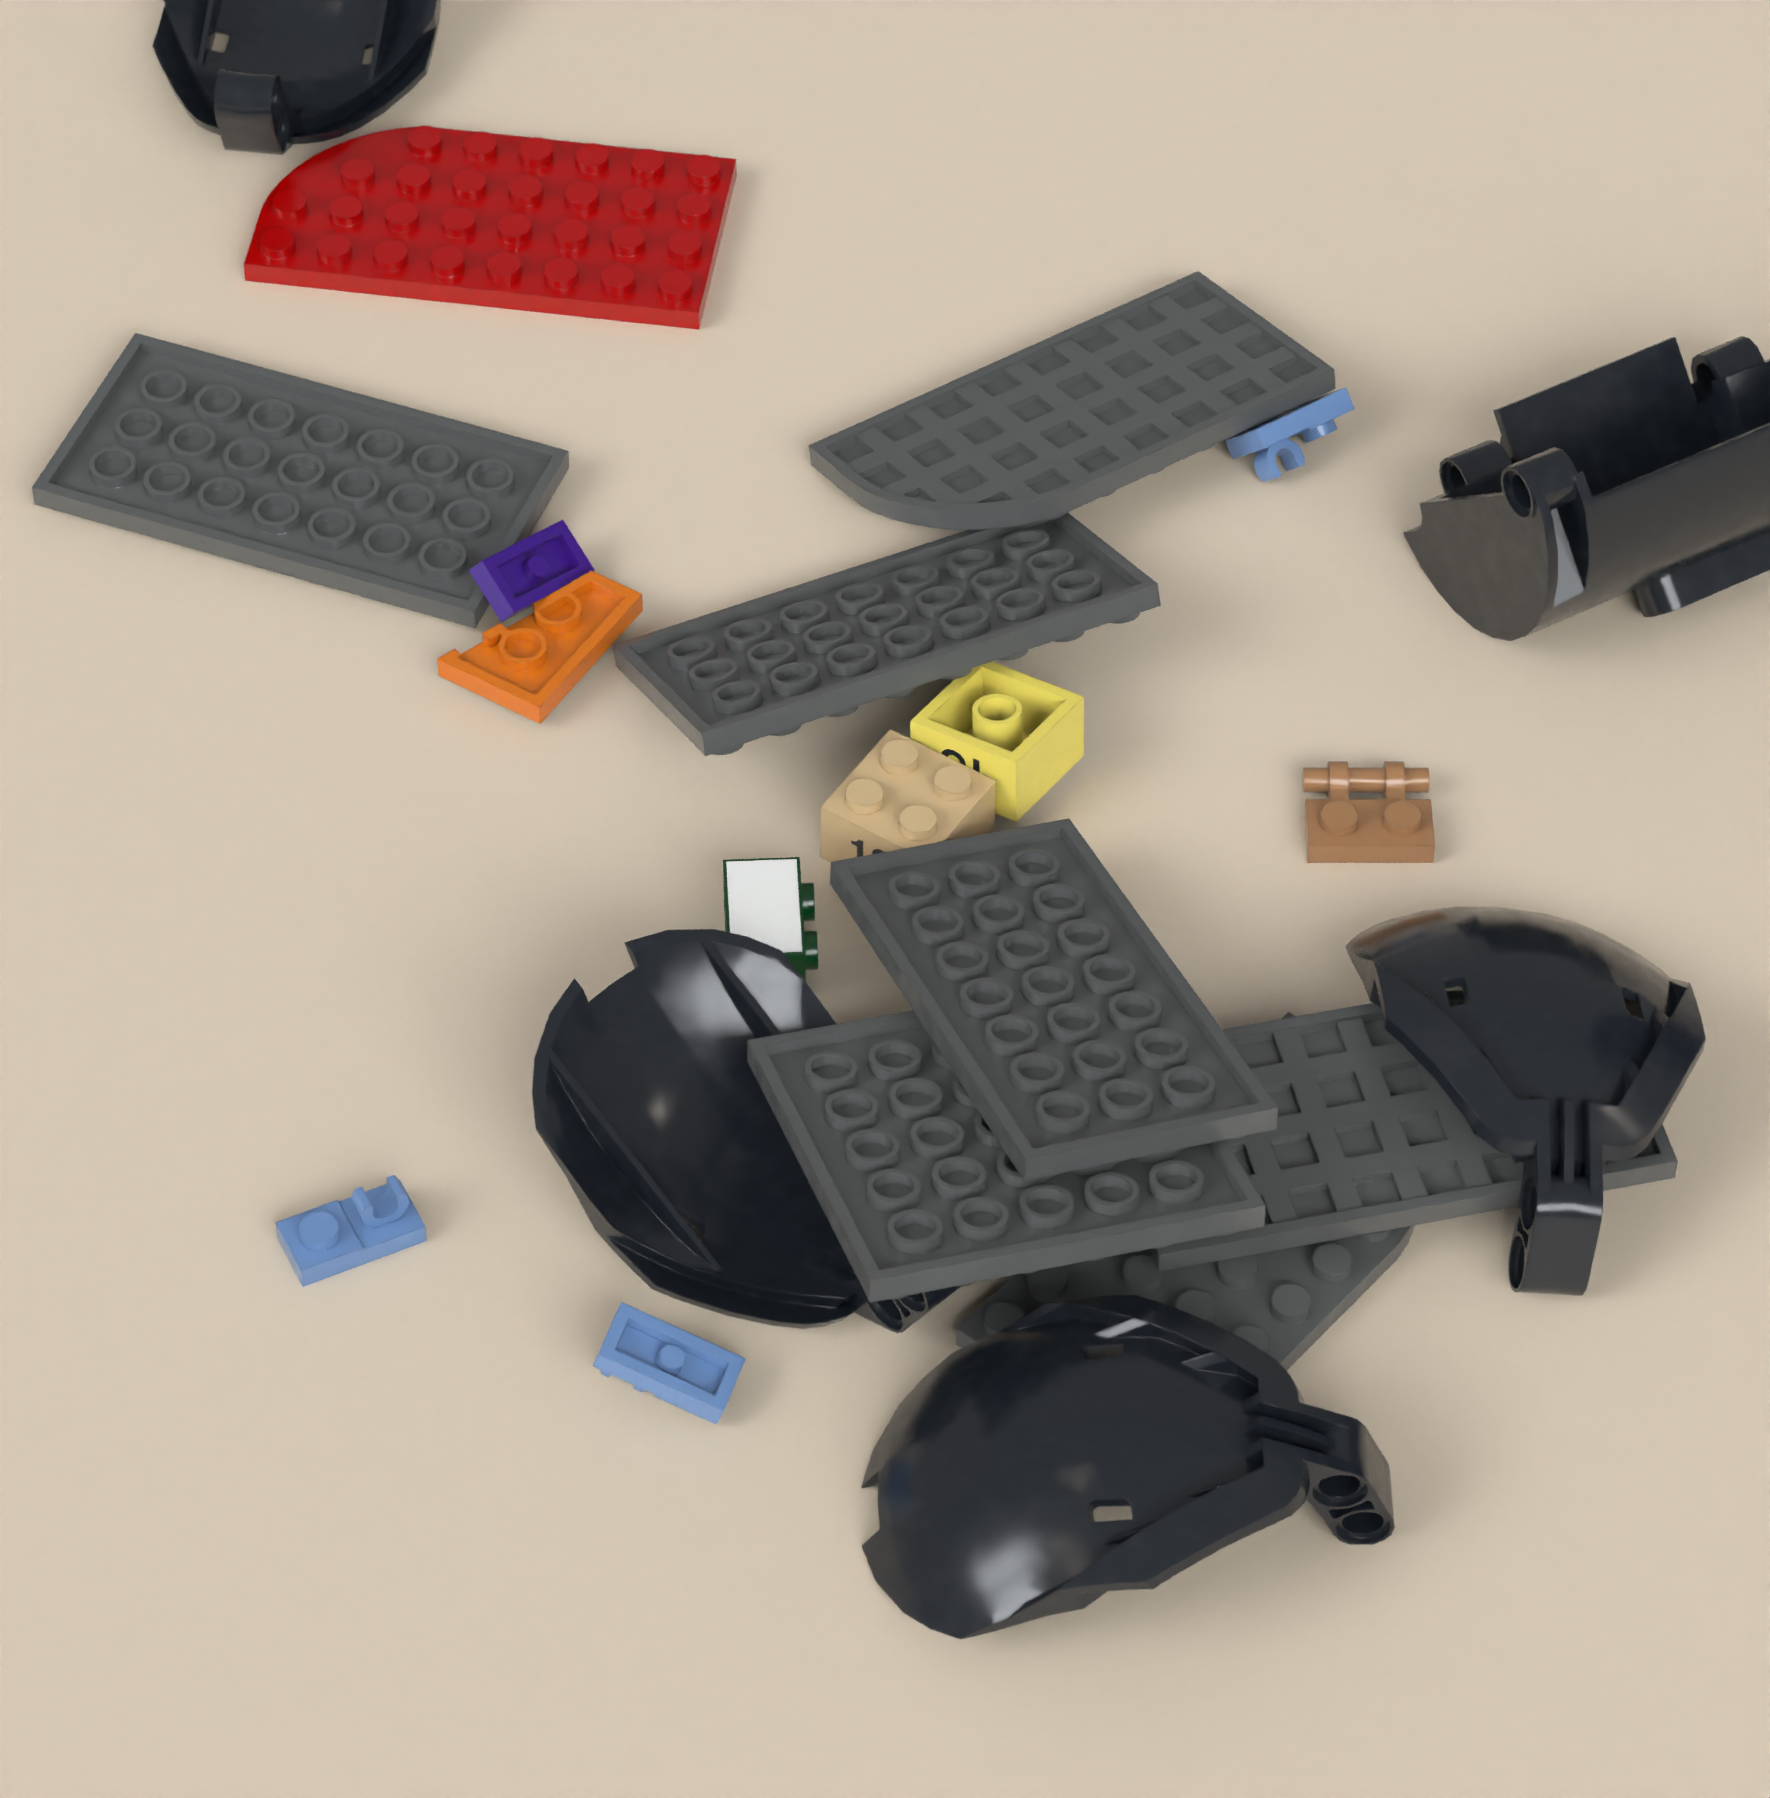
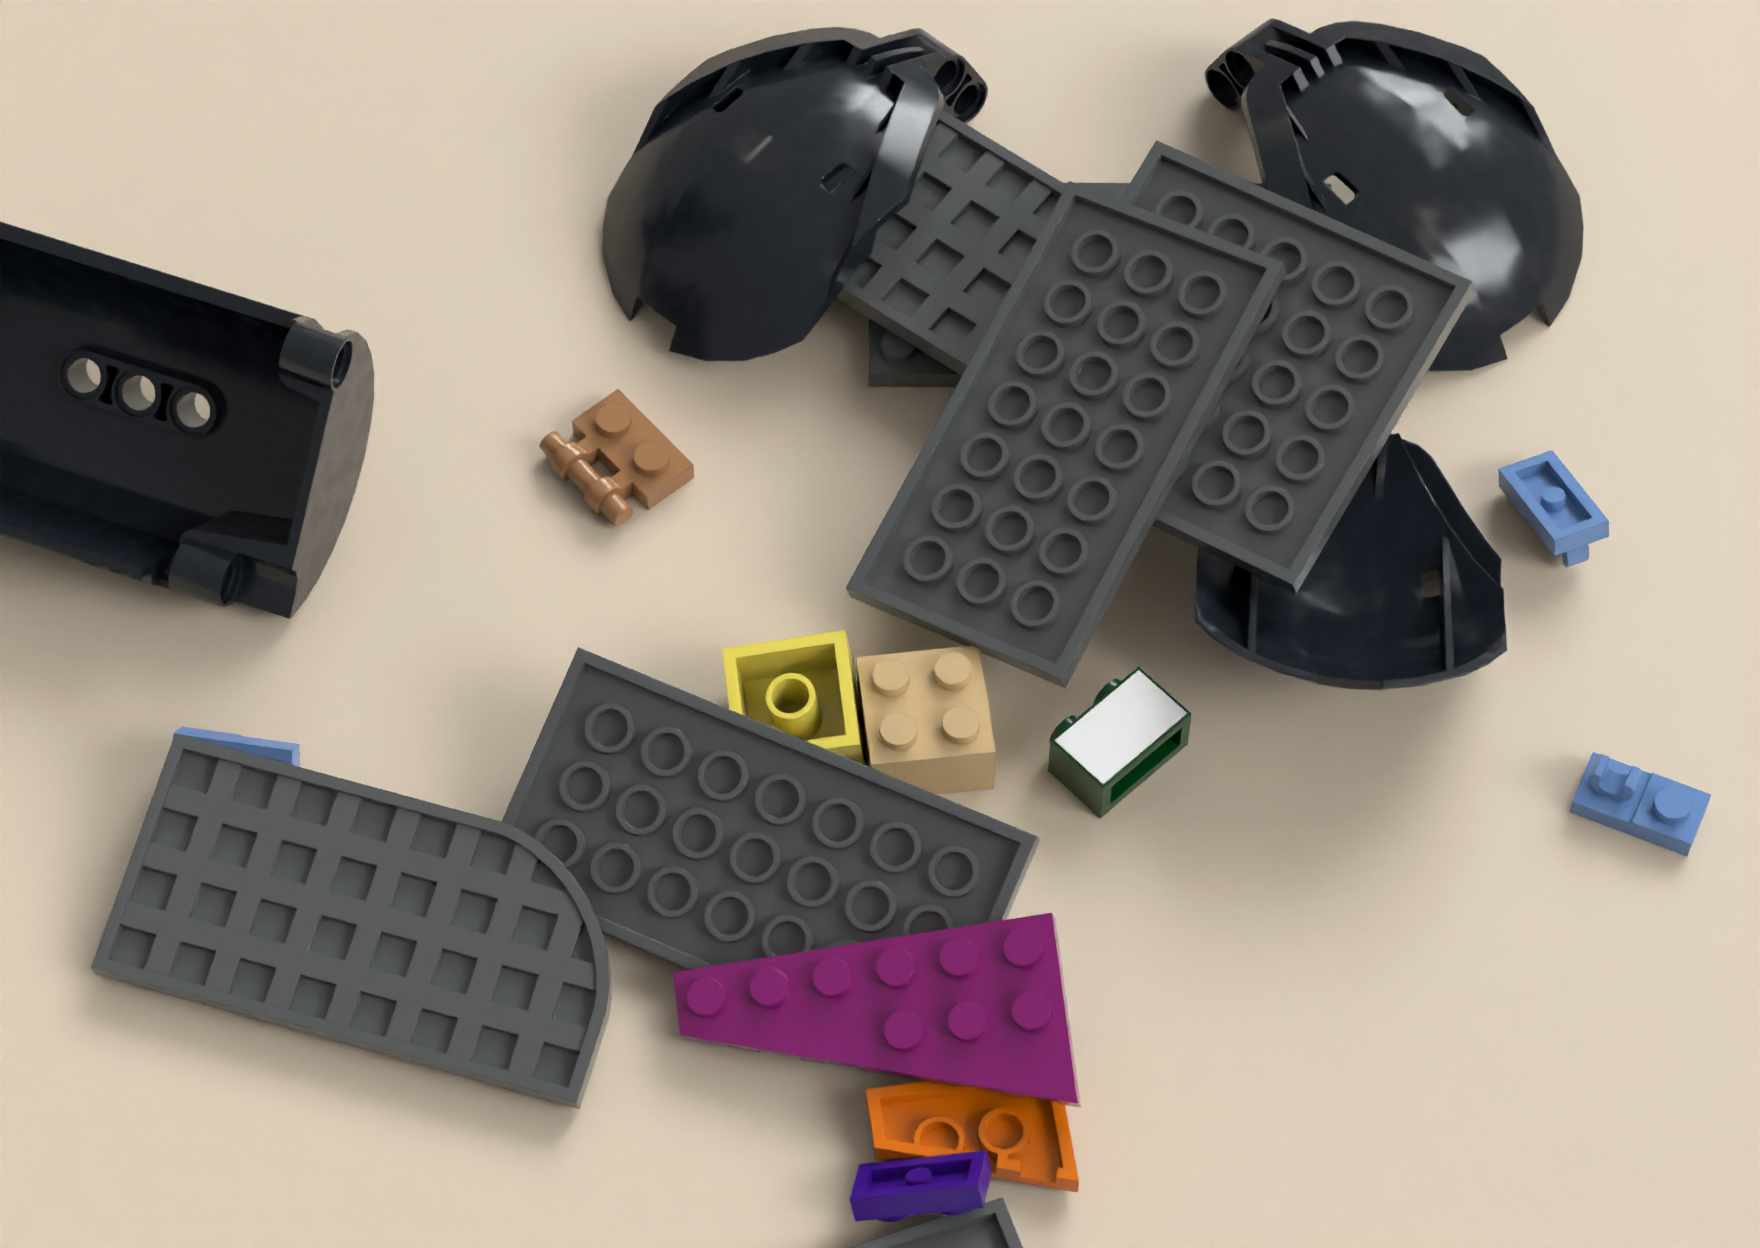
camera: 130 degrees left, 10 degrees up
(660, 640) = (929, 1006): none -> magenta wing

